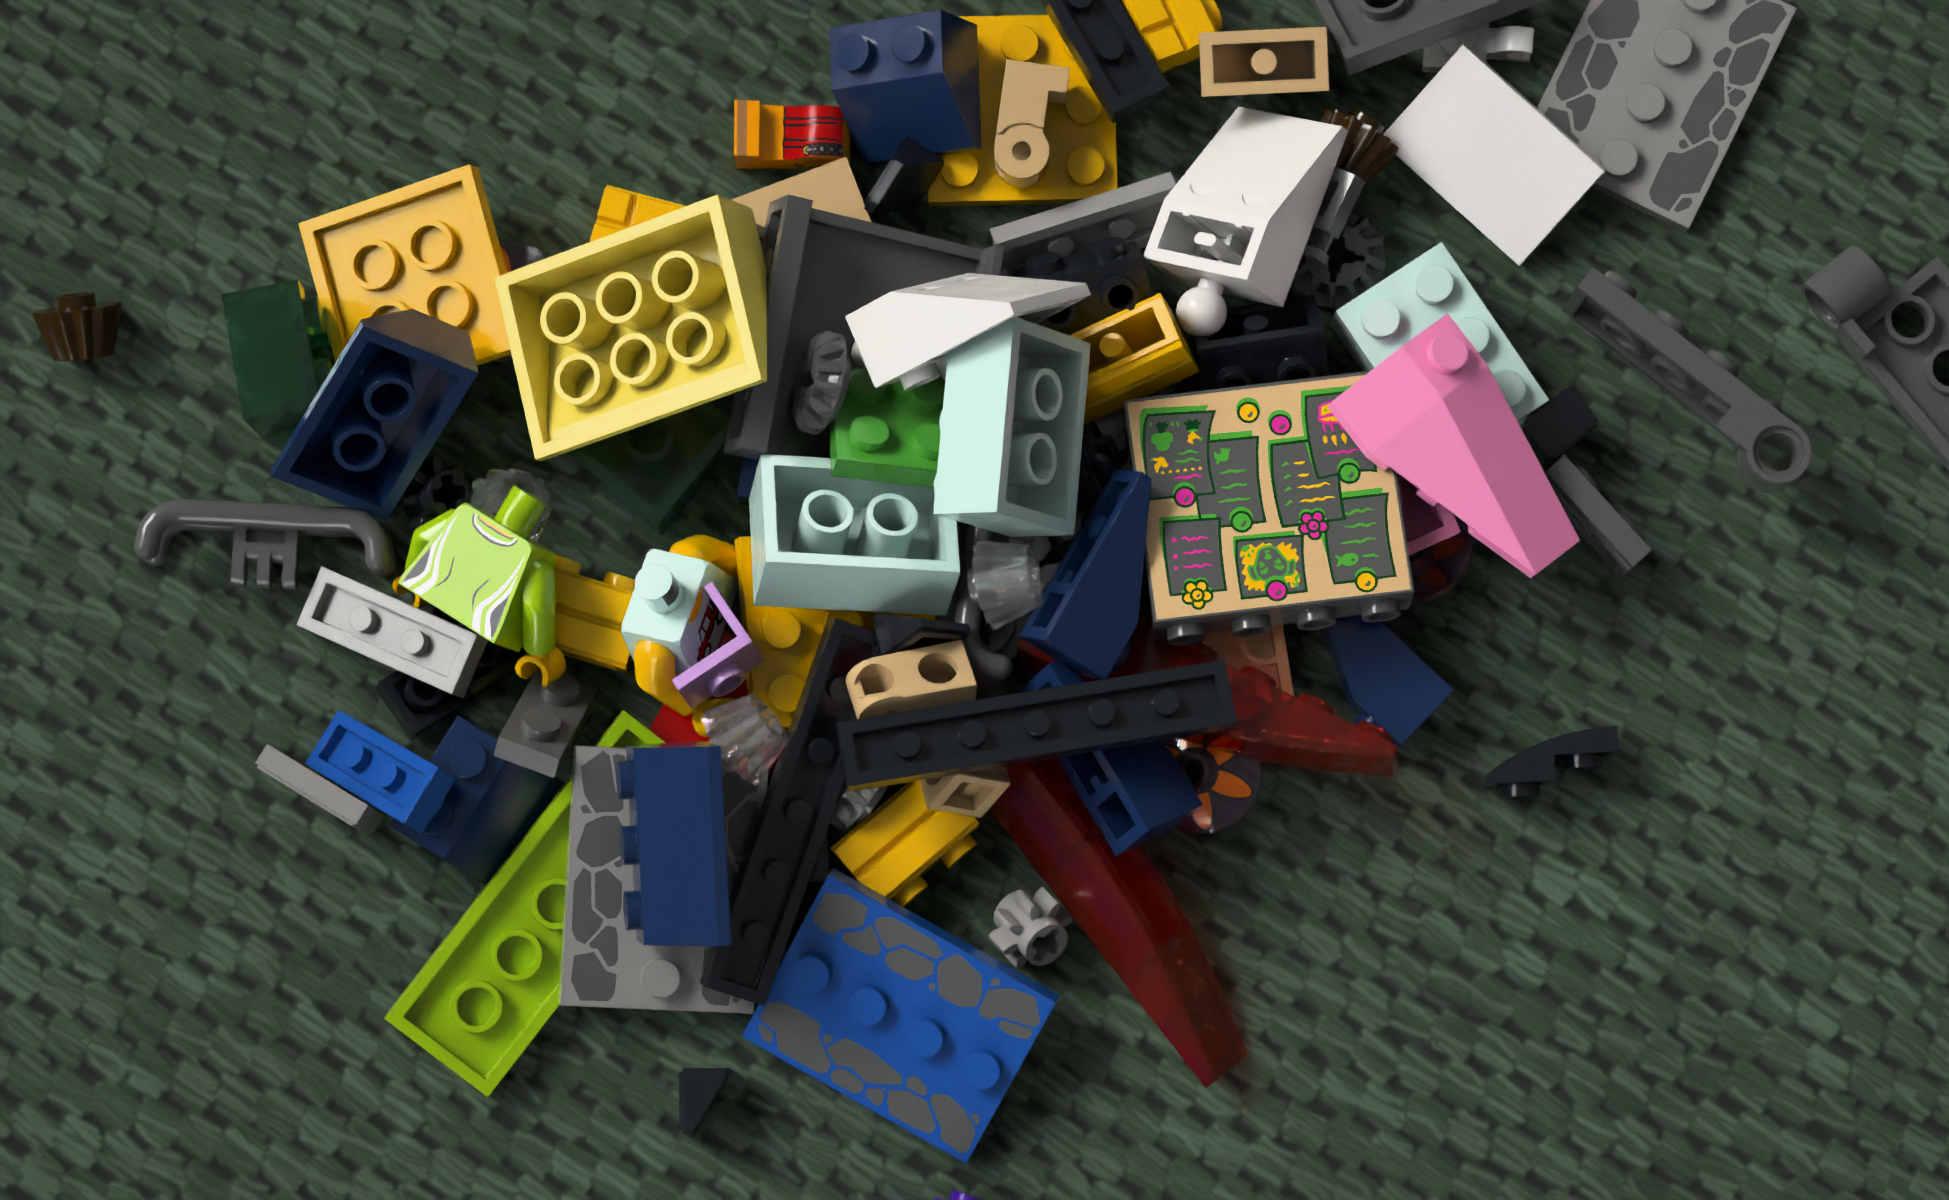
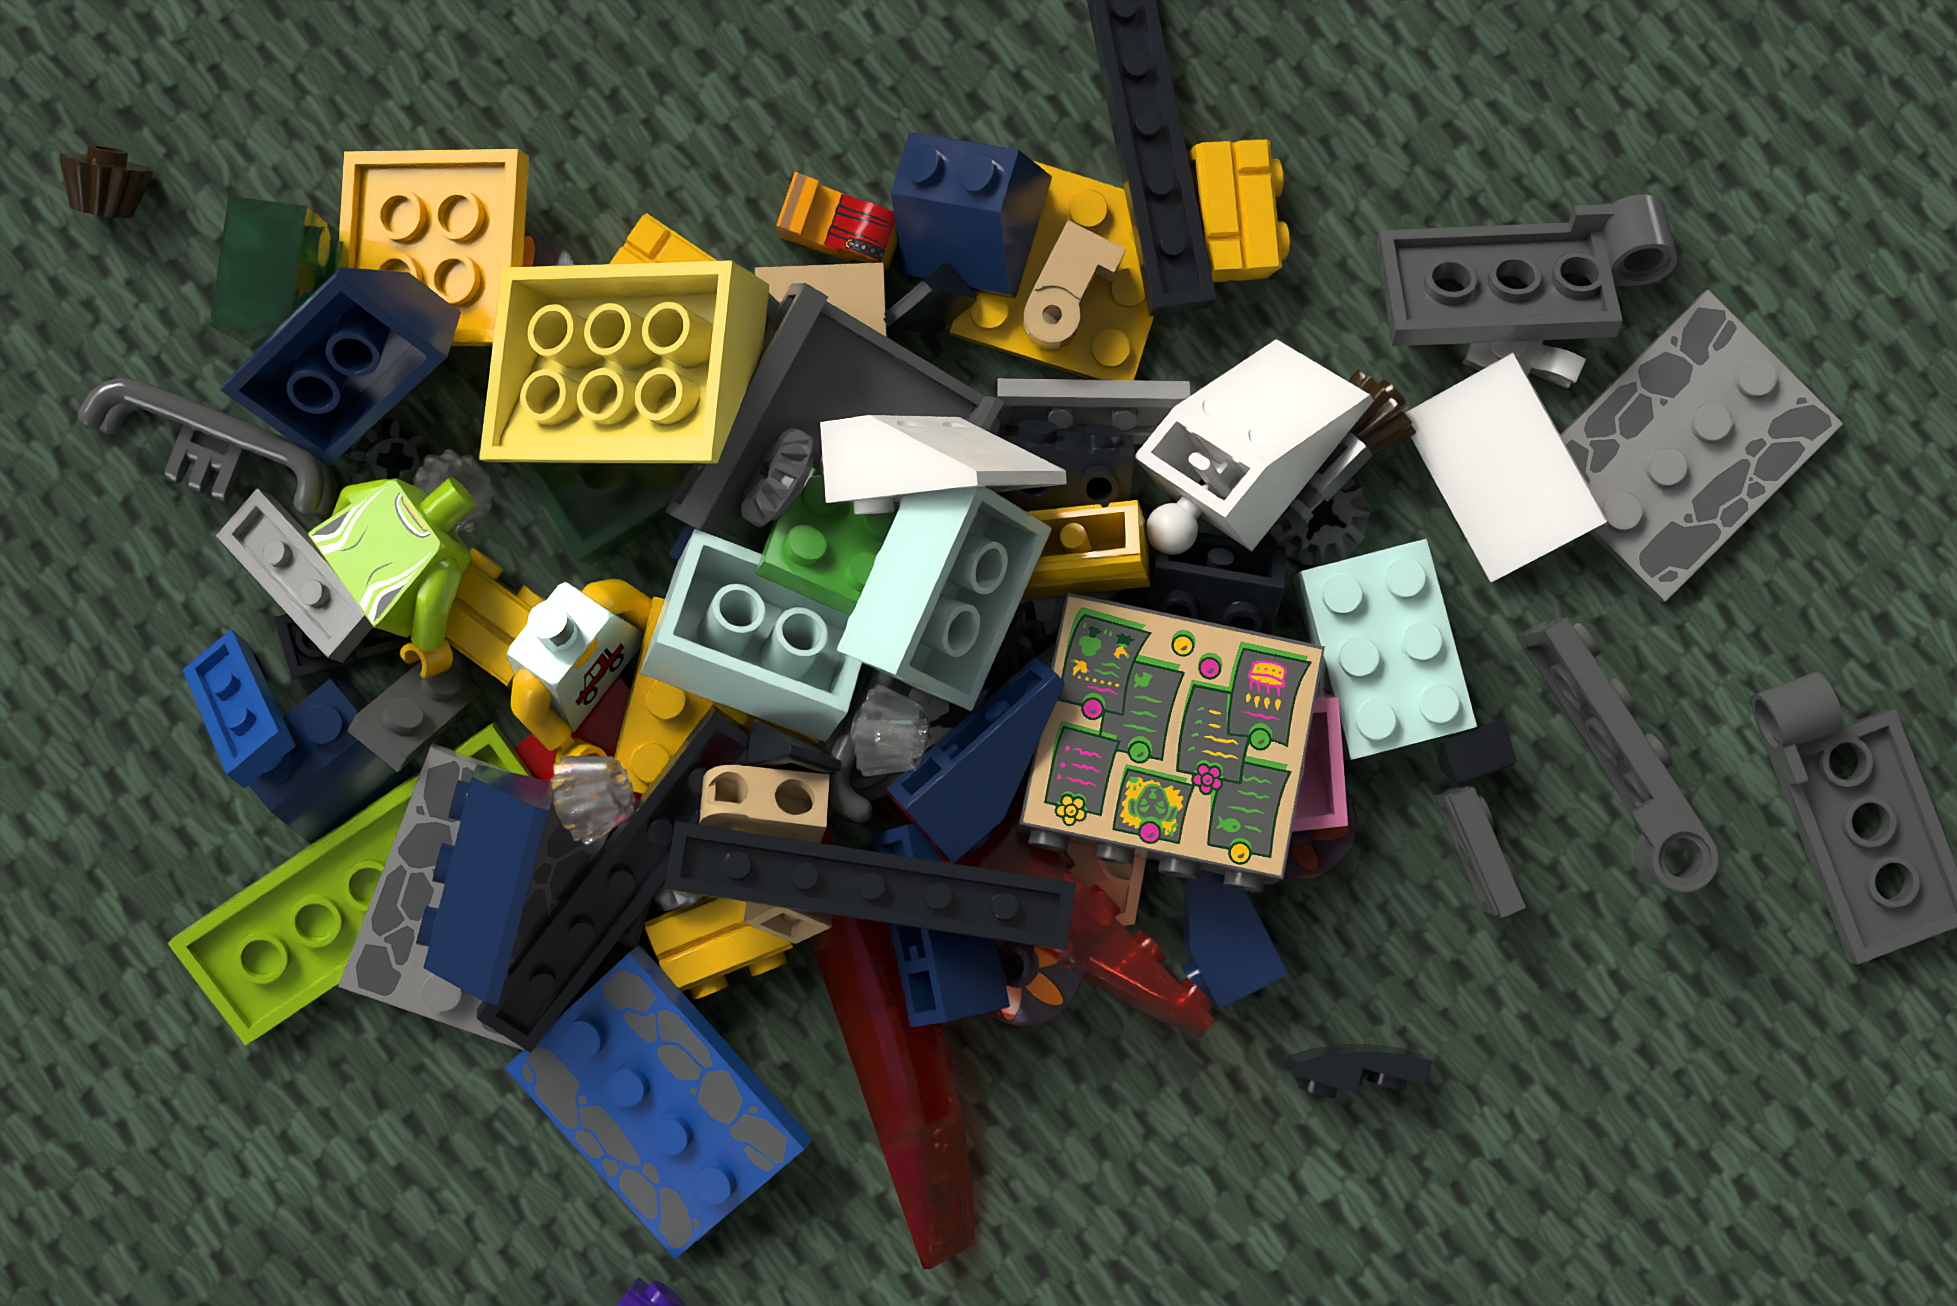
camera: 15 degrees right, 5 degrees up
(319, 790) = (174, 704): light grey tile -> none
(698, 1094) = (442, 1108): black slope -> none
(725, 667) = (595, 723): lavender bracket -> none
(1030, 927) = (809, 1060): light grey gear -> none
(1264, 61) = (1315, 305): tan slope -> none
(1452, 435) = (1374, 737): bright pink wedge -> none

